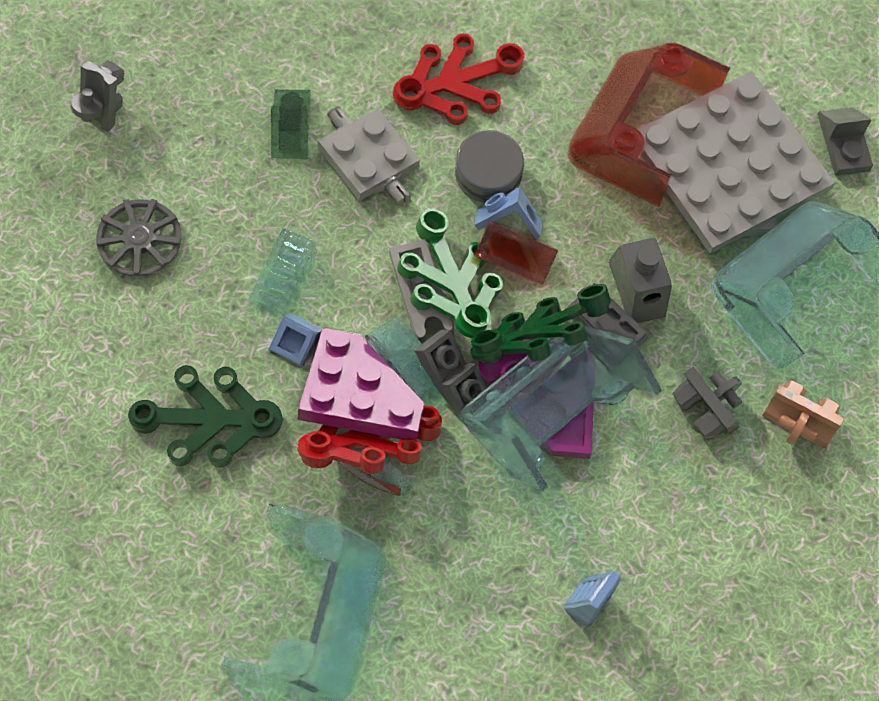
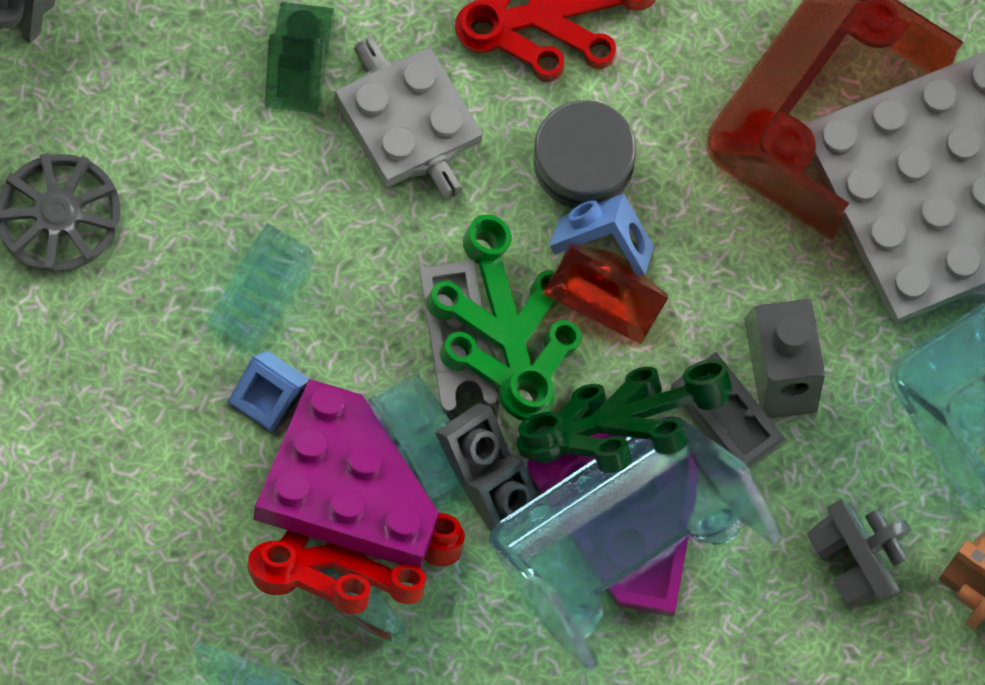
camera: 10 degrees right, 5 degrees up
(211, 418) = (134, 497): dark green plant -> none

